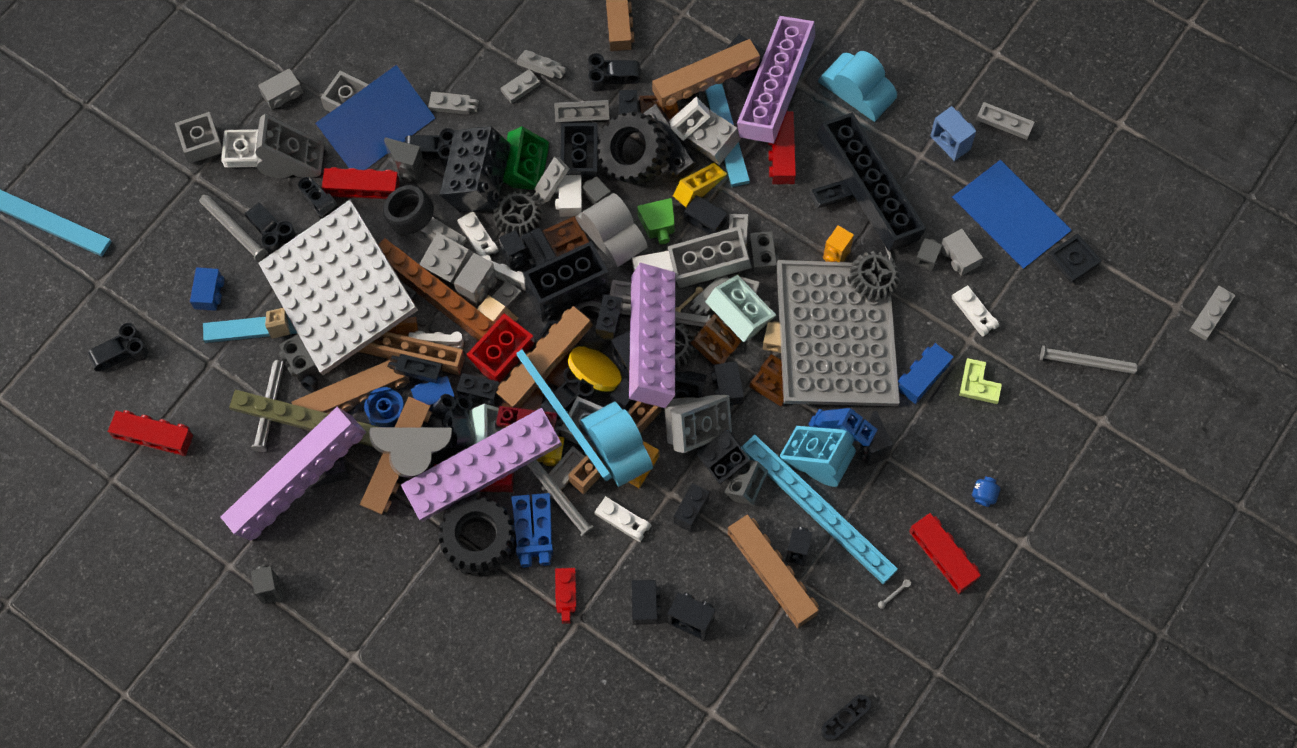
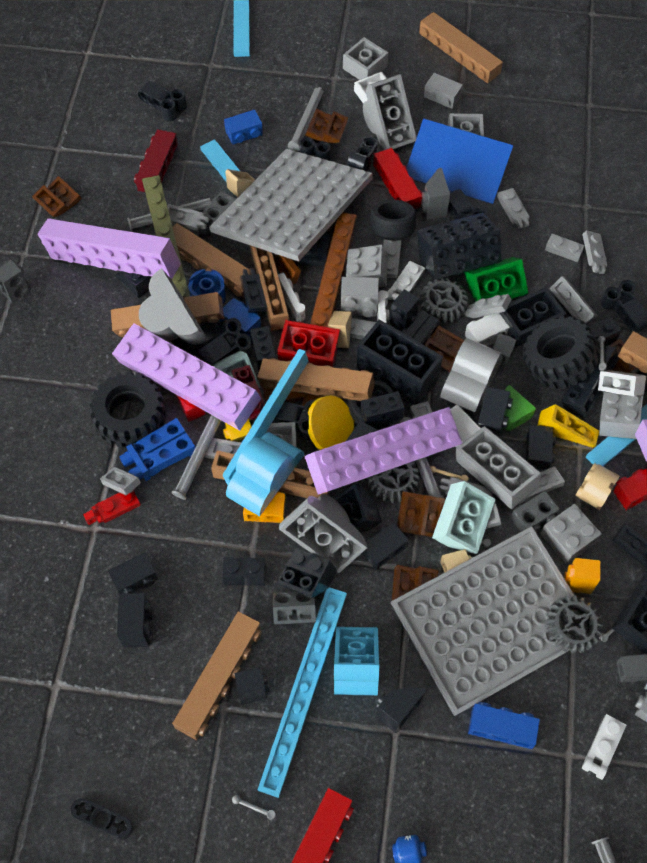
camera: 60 degrees right, 5 degrees down
(150, 433) = (104, 151): red brick -> none
(178, 504) = (57, 197): none -> reddish brown slope
(197, 389) = (157, 157): none -> dark red brick
(236, 46) = (460, 47): none -> medium nougat brick
(263, 212) = (326, 126): none -> reddish brown slope
(293, 388) = (187, 218): none -> light grey hinge
(546, 574) = (120, 481): none -> light grey plate
(622, 519) = (206, 519): white plate -> none
(658, 229) = (495, 409): none -> black brick
(667, 124) = (602, 366): none -> light grey hinge
(768, 191) = (597, 486): none -> tan brick
(795, 236) = (570, 534): none -> light grey brick
(846, 420) = (389, 667): blue hips -> none
(975, 387) = (519, 786): yellowish green plate -> none

